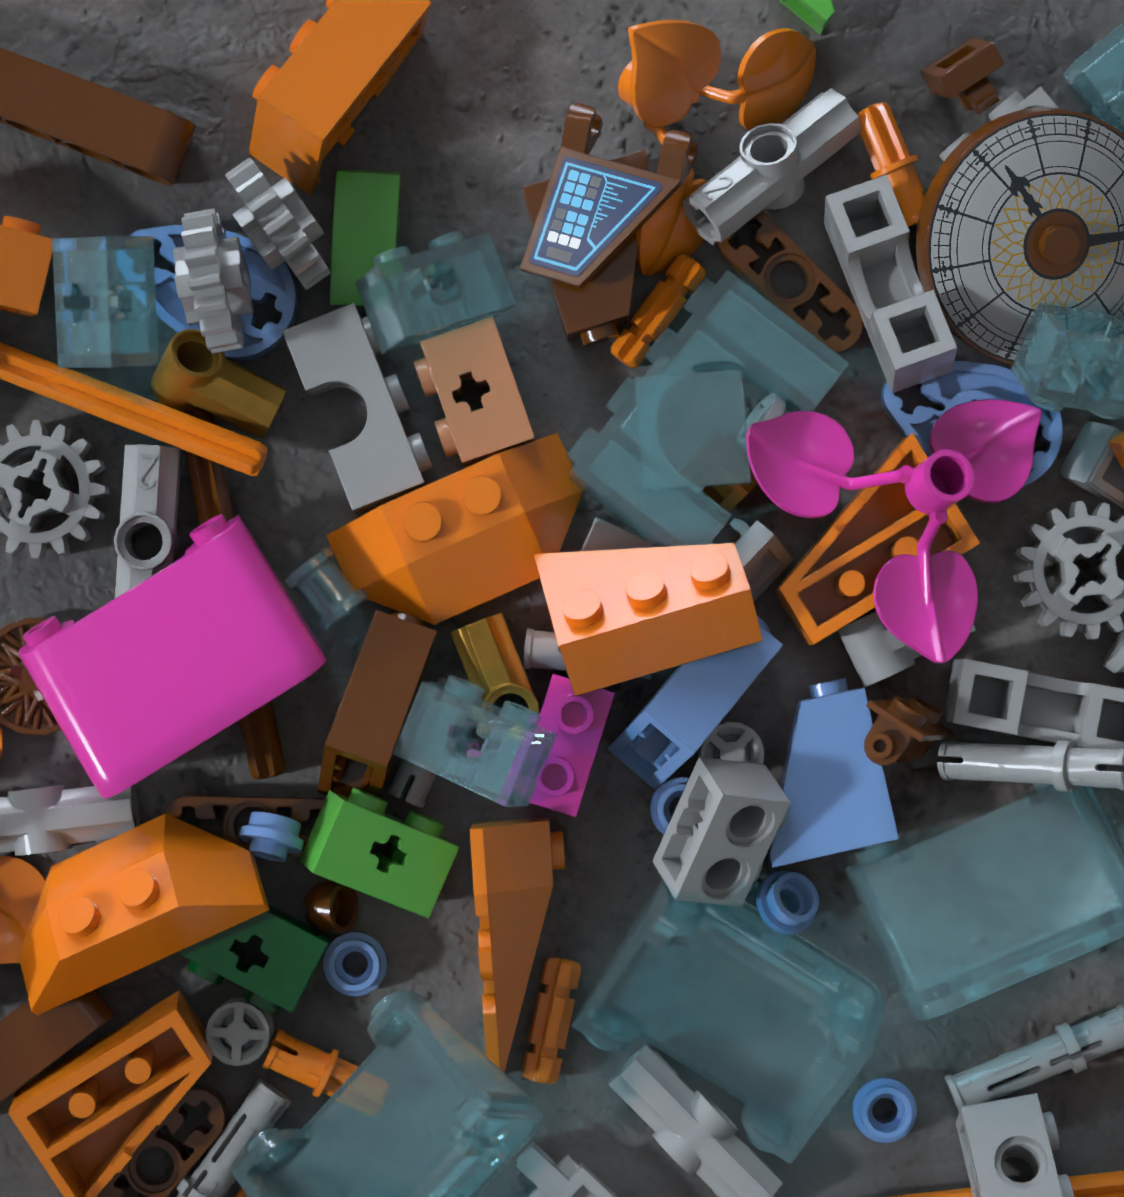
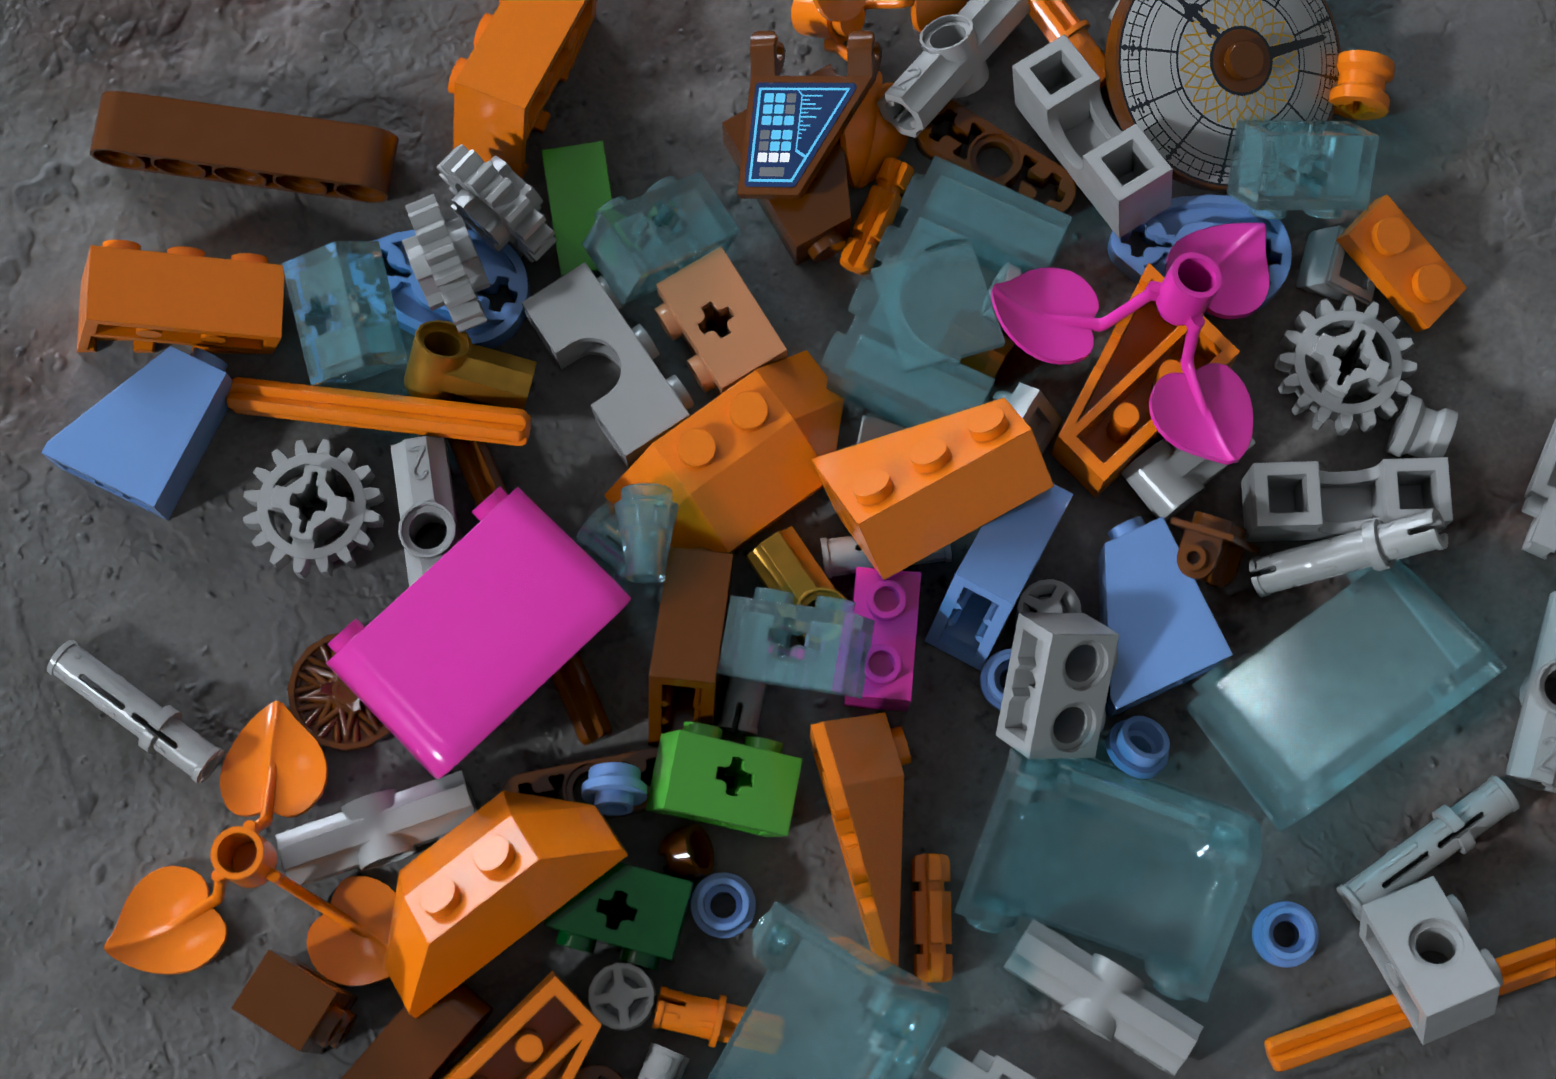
camera: 10 degrees left, 10 degrees down
(355, 592) = (646, 529): none -> clear light blue cone

